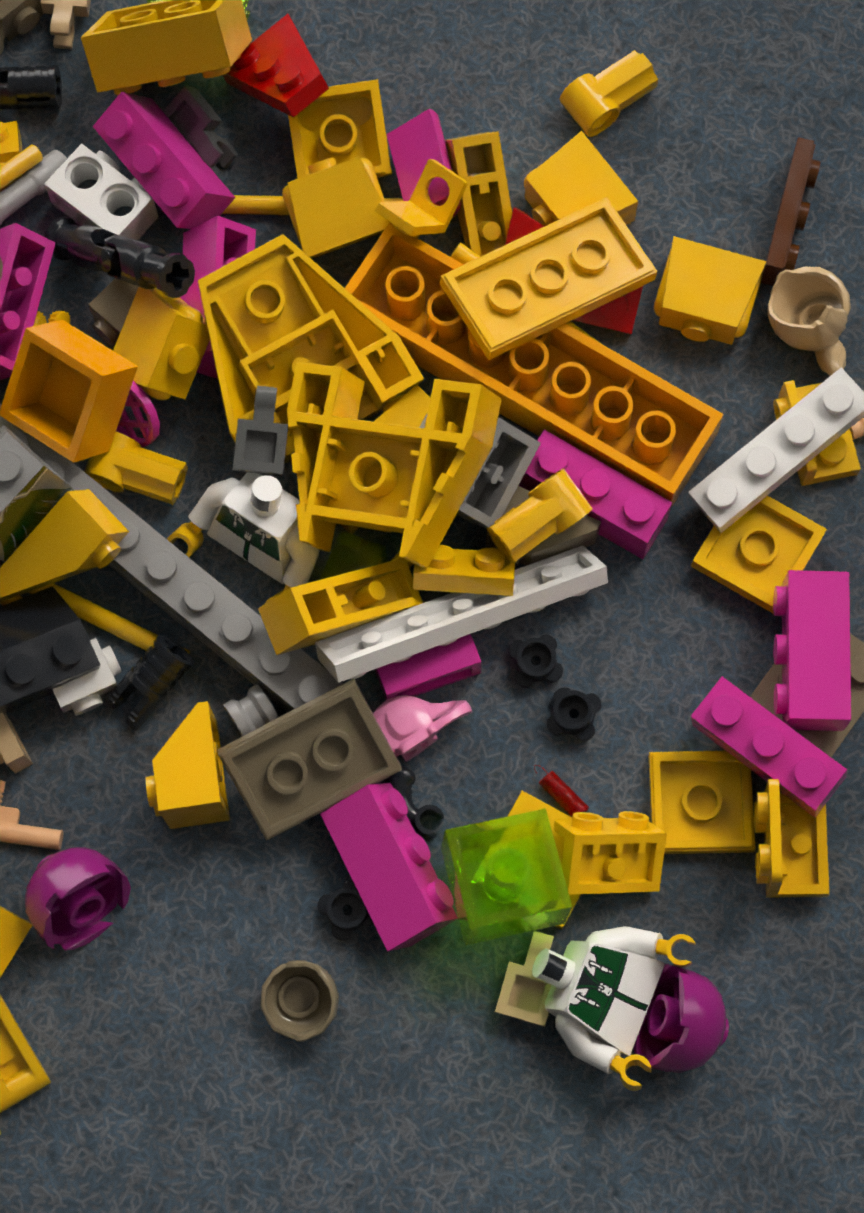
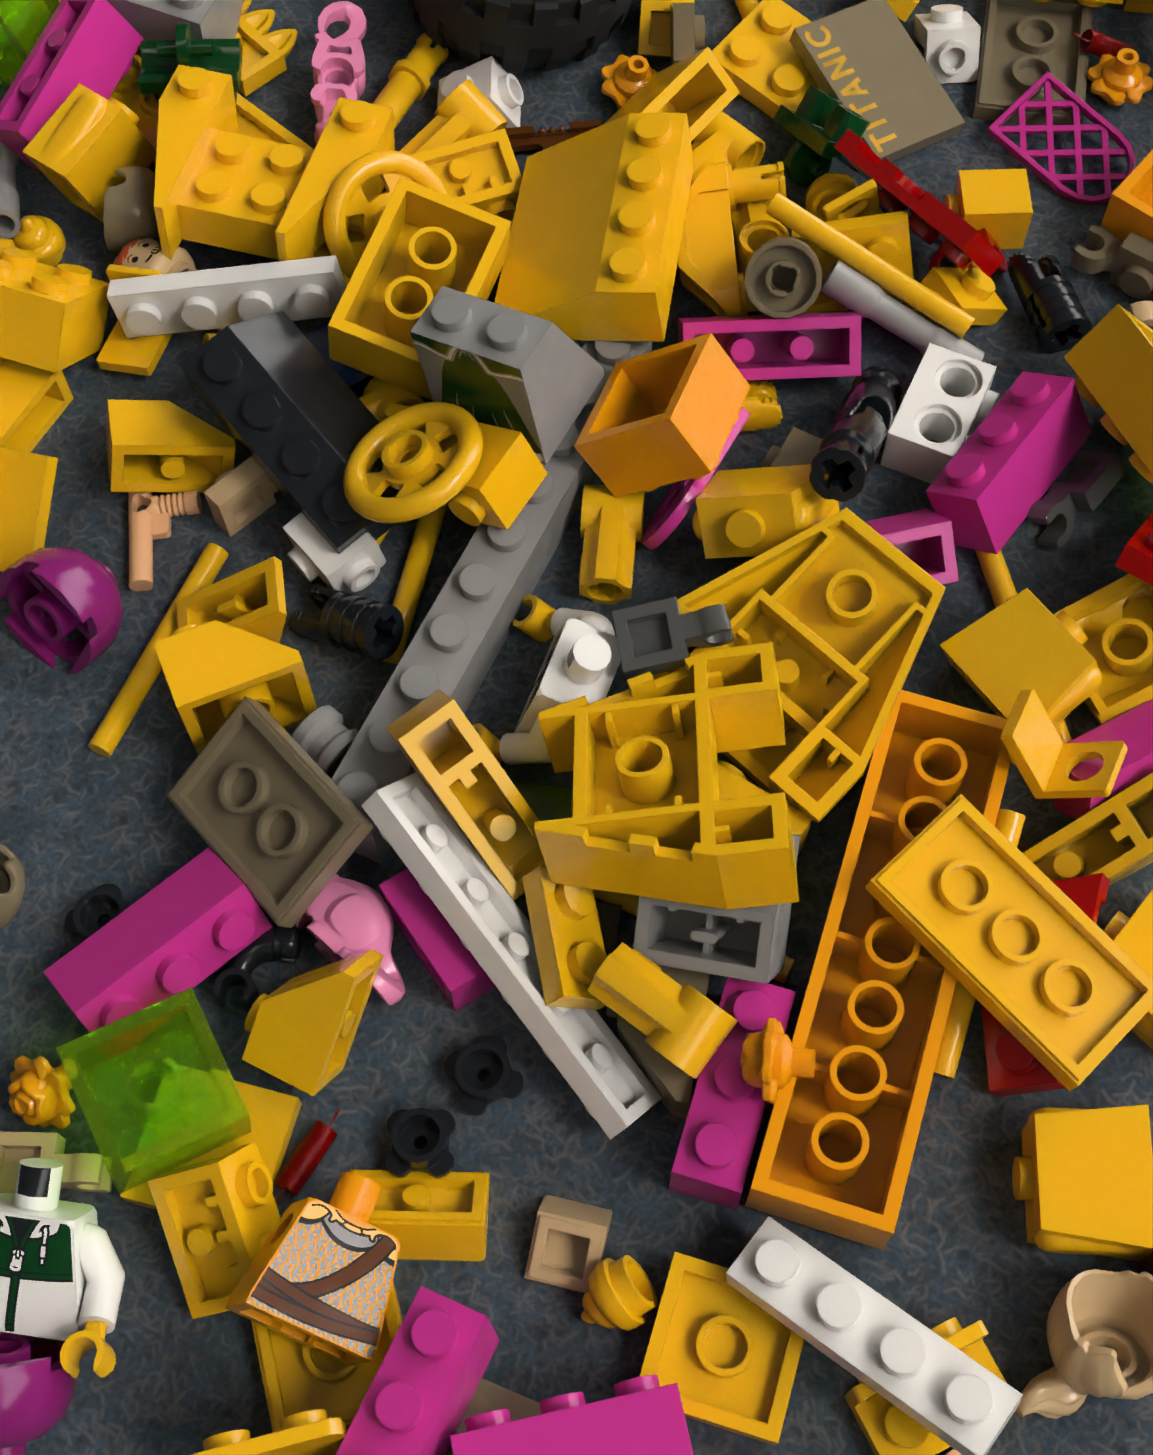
camera: 75 degrees right, 10 degrees down
(101, 587) = (413, 462): none -> yellow plate
(122, 761) = (245, 600): none -> yellow slope
(123, 834) = (148, 666): none -> yellow bar
(473, 970) = (40, 1093): none -> light orange plant
(474, 762) = (311, 1022): none -> yellow slope
(597, 452) = (772, 1061): none -> light orange plant
(622, 728) = (433, 1215): none -> yellow slope
(660, 783) = (324, 1274): none -> torso
(665, 631) = (567, 1242): none -> tan slope
(709, 606) = (618, 1294): none -> yellow plate

